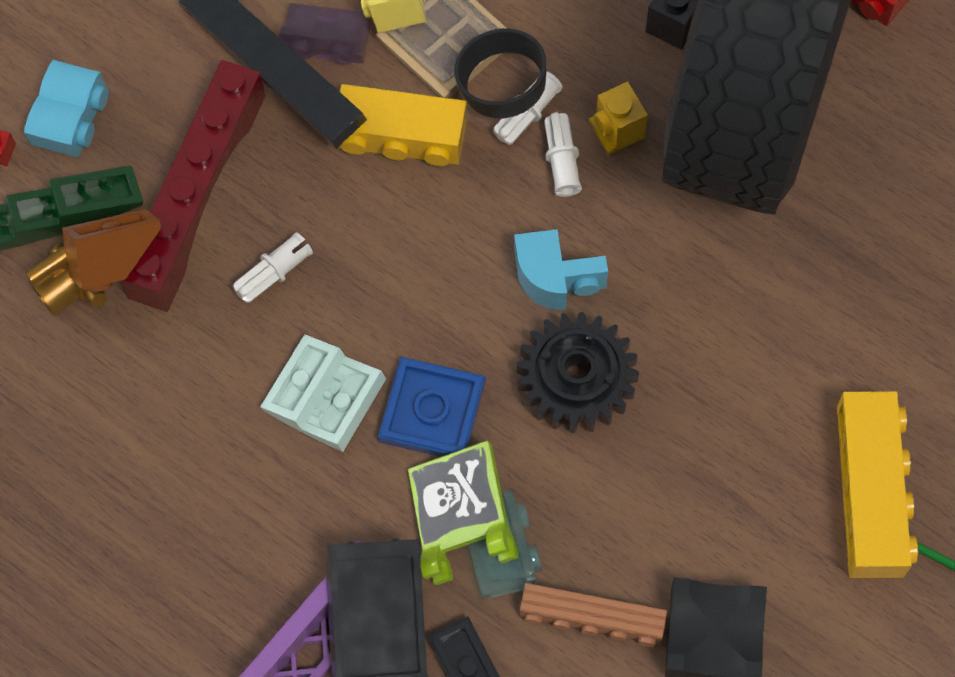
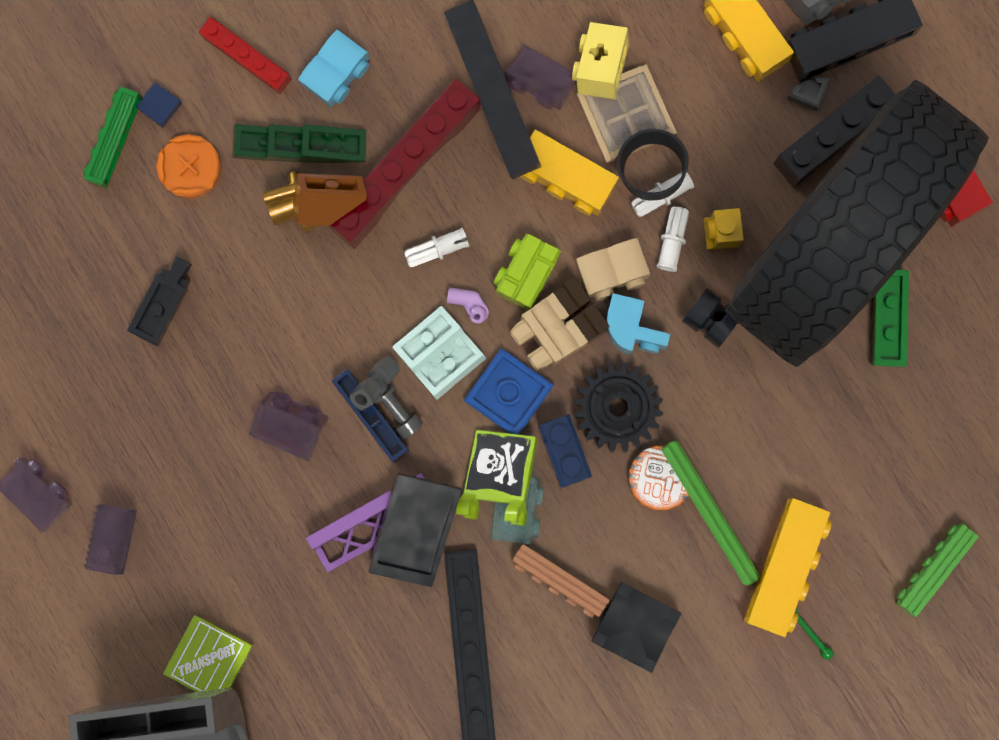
camera: 25 degrees right, 15 degrees up
(159, 552) = (288, 424): none -> clear purple bracket
(259, 455) = (378, 389): none -> dark grey bar
(264, 500) = (372, 419): none -> dark blue piece
(341, 317) = (472, 302): none -> lavender arm
(397, 255) = (527, 271): none -> lime brick
(464, 301) = (548, 327): none -> tan hips
(500, 210) = (613, 269): none -> tan brick
(532, 448) = (564, 451): none -> dark blue brick
(649, 222) = (700, 318): none -> black wheel
(667, 439) = (655, 481): none -> tile
(749, 454) = (710, 512): none -> bright green axle
(863, 148) = (891, 322): none -> green plate

